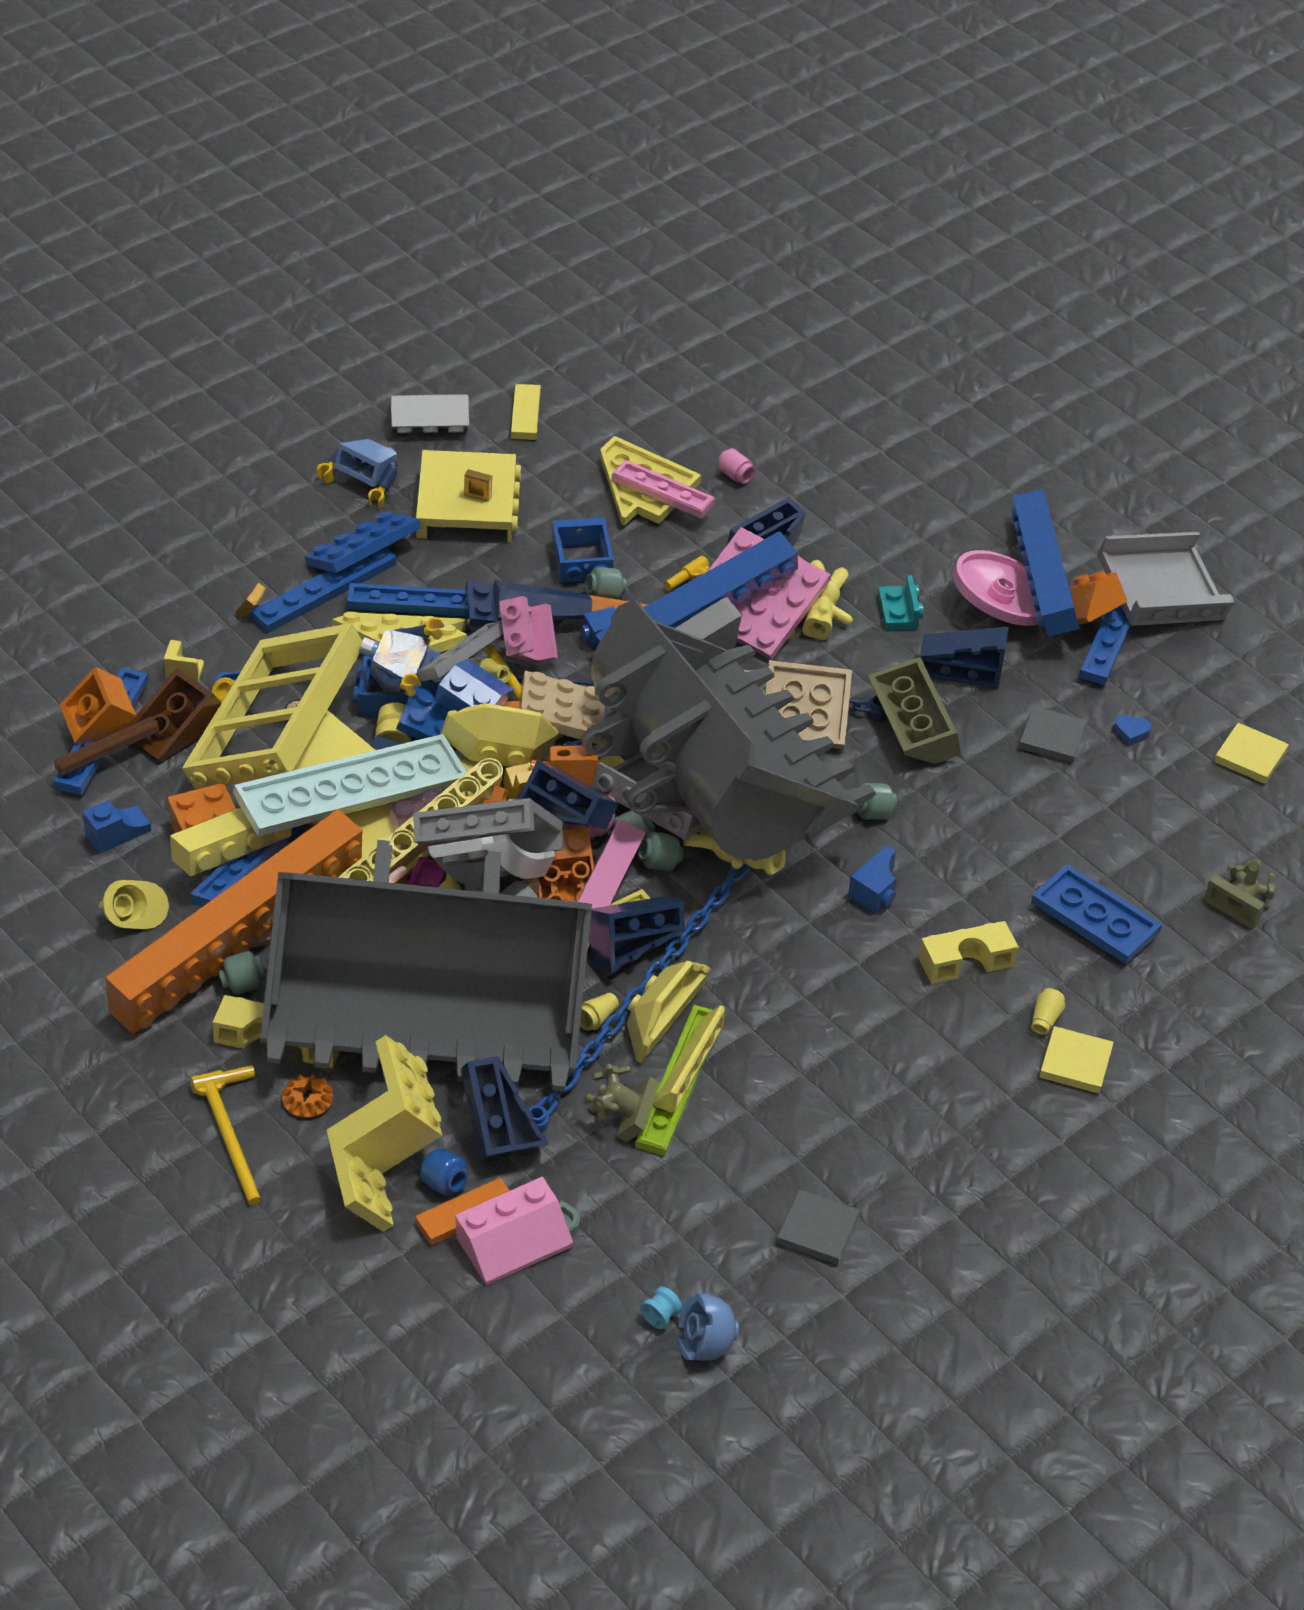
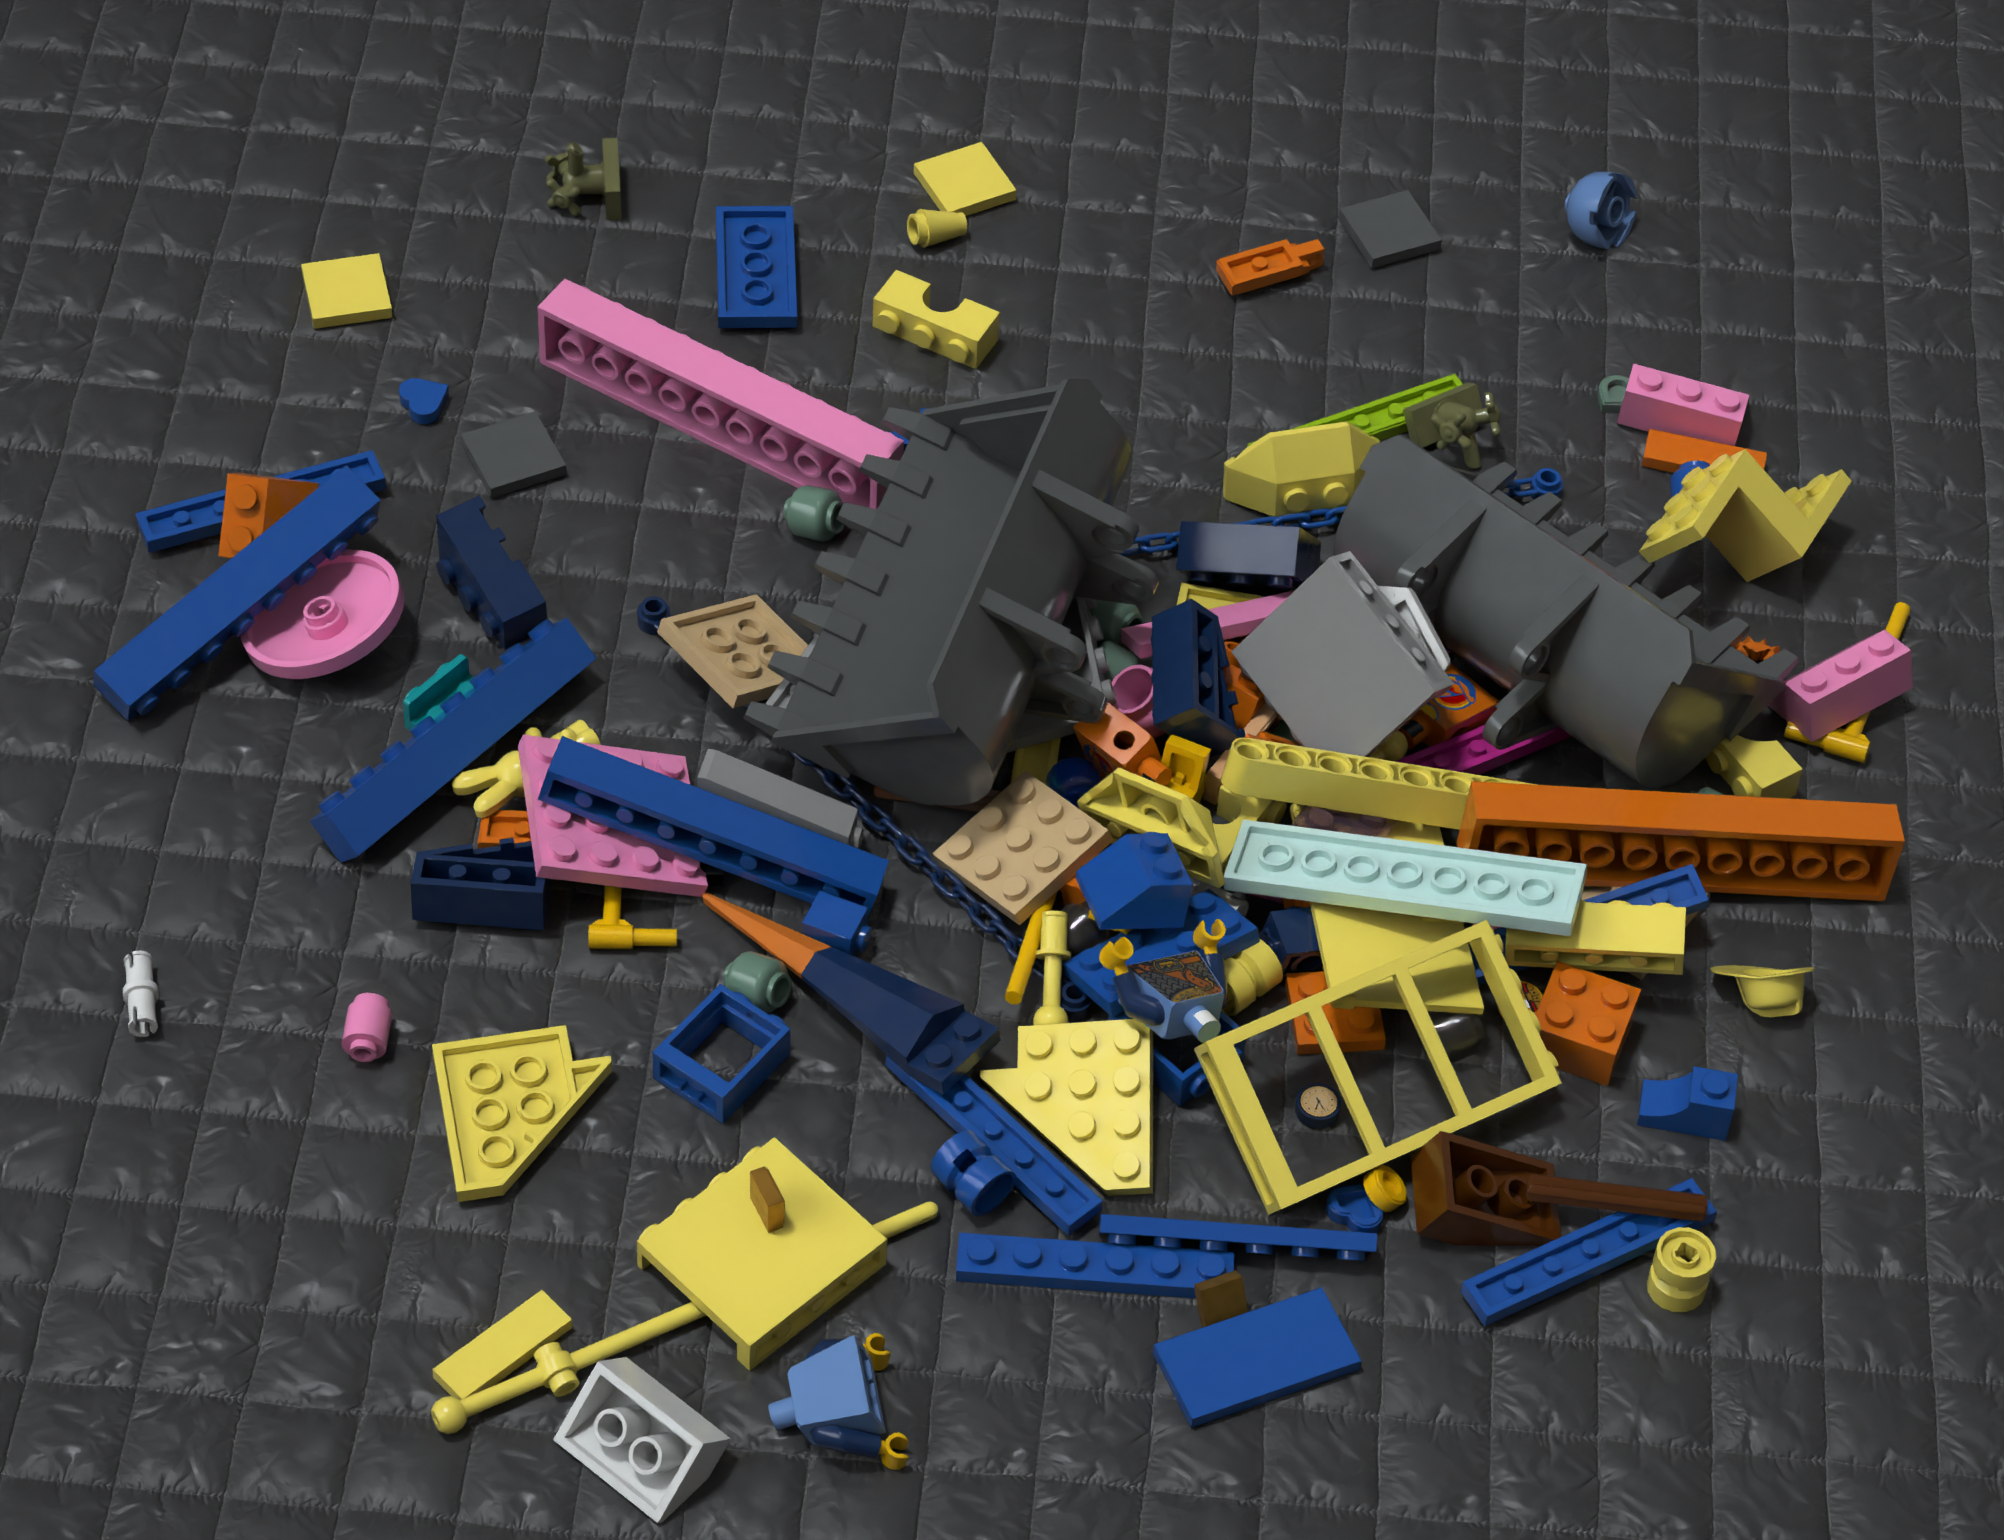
camera: 135 degrees left, 5 degrees up
(45, 740) = (1681, 1269): none -> light yellow wheel
(97, 707) = (1588, 1245): orange slope -> none
(174, 659) = (1398, 1275): light yellow panel -> none
(212, 599) = (1256, 1357): none -> blue tile
(243, 1097) = (1846, 685): none -> bright pink slope
(285, 621) = (1258, 1238): none -> blue plate
(362, 542) = (985, 1275): blue plate -> none
(415, 572) = (971, 1171): none -> blue wheel
(467, 648) = (1079, 947): light grey plate -> none
(492, 417) = (558, 1367): none -> light yellow bar
(497, 1112) = (1604, 474): dark blue wedge -> none
(528, 631) = (940, 955): bright pink panel -> none
(661, 1307) = (1616, 258): medium azure wheel -> none
(663, 489) = (515, 1052): bright pink tile -> none
(690, 1060) = (1360, 402): light yellow slope -> none
(841, 423) = (140, 993): none -> white pin
(849, 1135) = (1268, 265): none -> orange hinge
(870, 583) = (452, 740): none -> blue brick
(916, 712) = (639, 555): olive slope -> none
(994, 806) = (710, 395): none -> bright pink brick
(1163, 579) = (140, 486): light grey panel -> none

